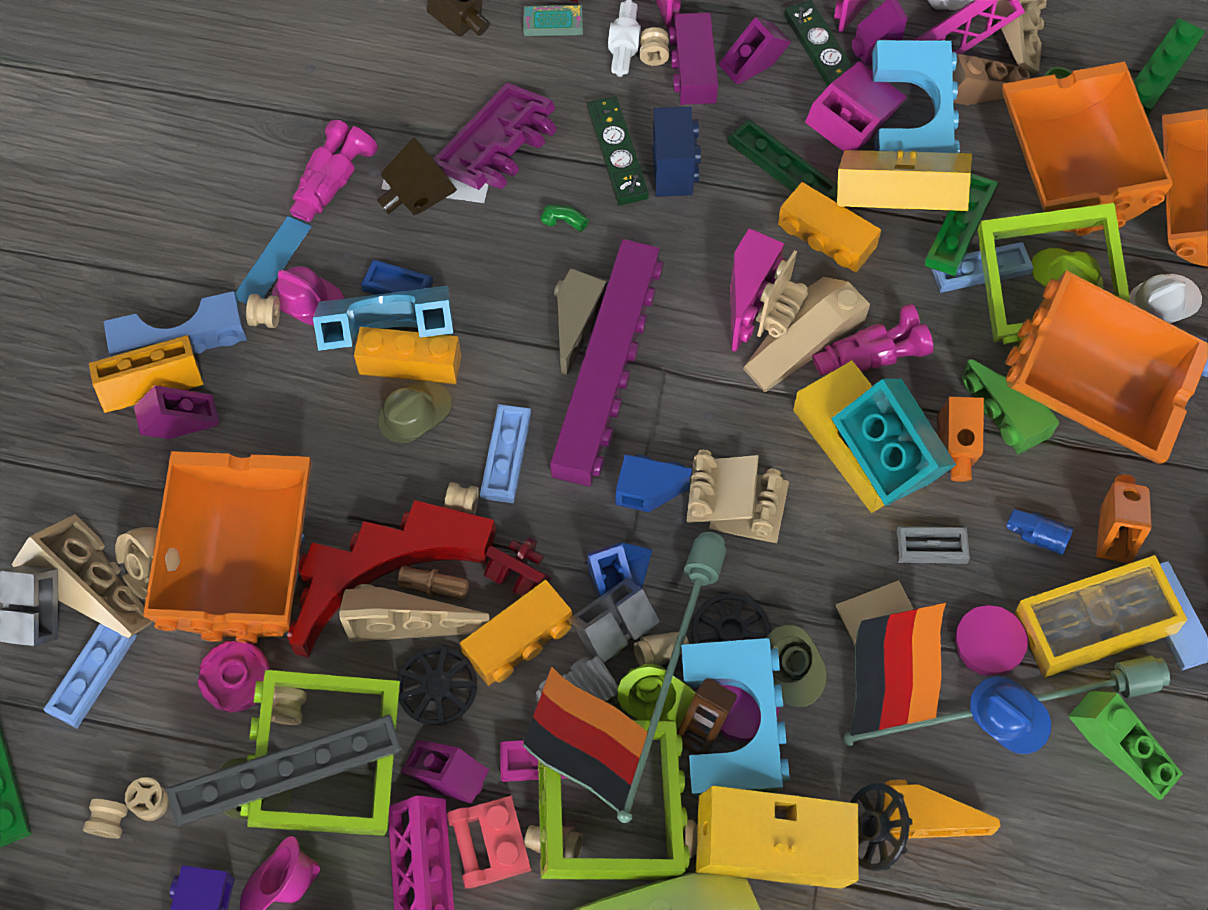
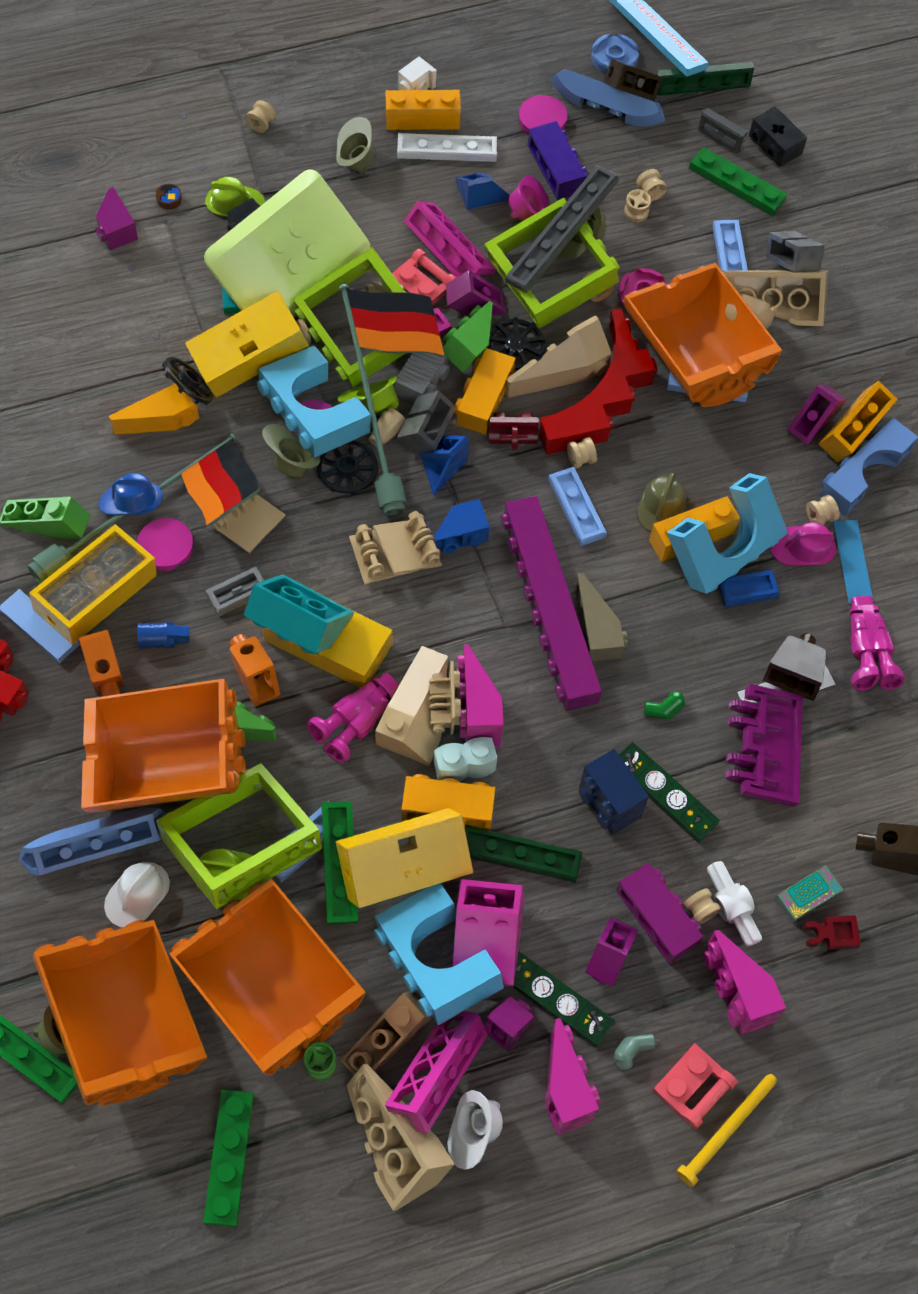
camera: 145 degrees right, 0 degrees up
(432, 582) = (561, 396): medium nougat axle -> none
(493, 699) = (470, 339): none -> bright green slope
(713, 699) = (330, 390): reddish brown slope -> none
(809, 250) = (473, 759): none -> light aqua brick

